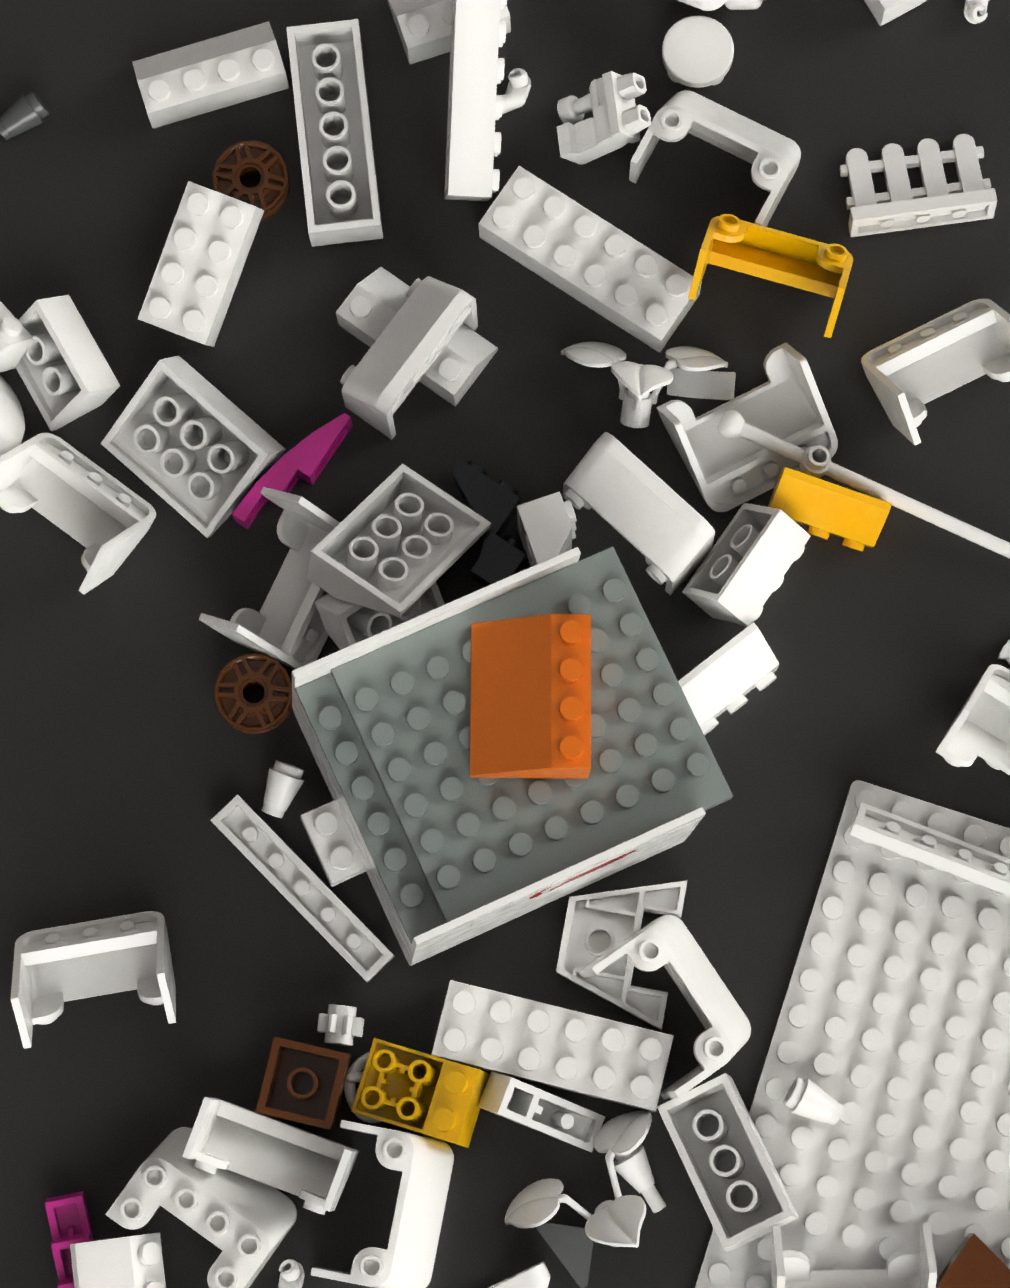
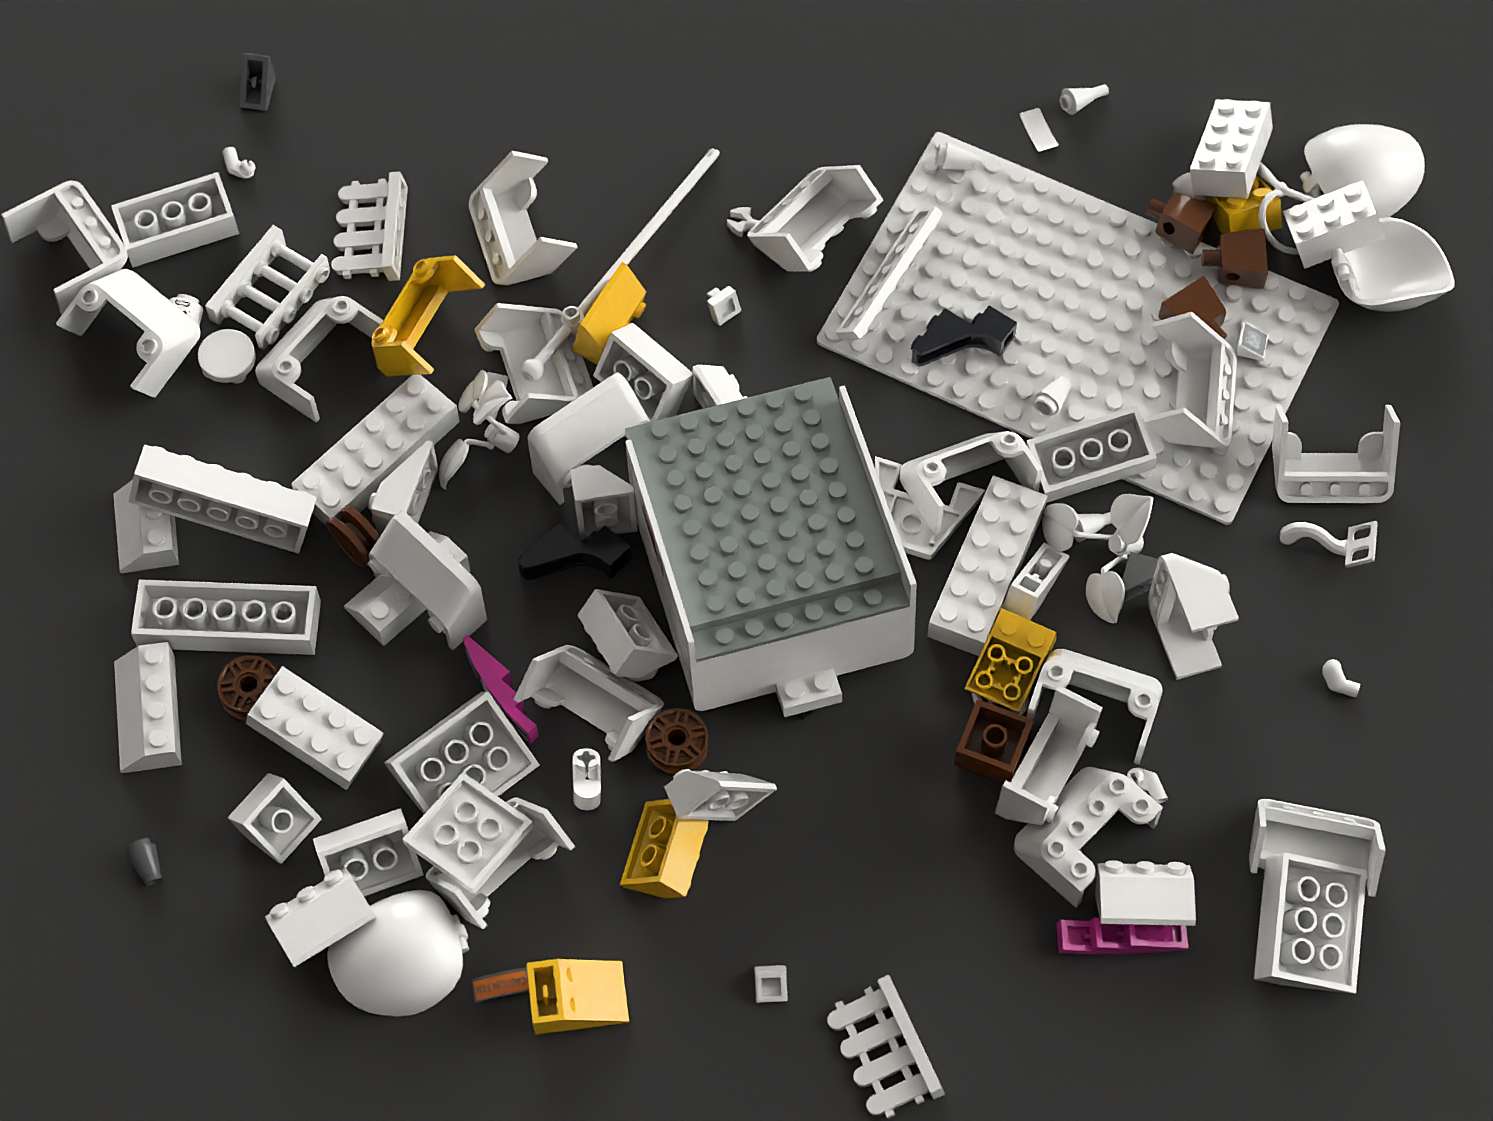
camera: 85 degrees left, 15 degrees down
(86, 467) = (468, 833): none -> white plate
(91, 962) = (871, 884): white windscreen -> none
(92, 245) = (274, 817): none -> white slope
(115, 705) = (663, 852): none -> yellow slope
(175, 600) = (586, 766): none -> white piece
(175, 748) = (715, 794): none -> white slope
(281, 787) = (755, 733): white cone -> none
(302, 888) = (837, 728): white plate -> none
(340, 1025) = (950, 712): white gear -> none
(395, 544) = (583, 605): white slope -> none
(462, 256) = (355, 536): none -> reddish brown wheel
(525, 304) = (405, 488): none -> white slope
(531, 697) = (736, 486): orange slope -> none
(614, 118) = (266, 412): white hips -> none
(798, 44) = (257, 265): none -> white fence
(880, 649) = (723, 304): none -> white tile
(882, 952) = (951, 333): none -> black arch

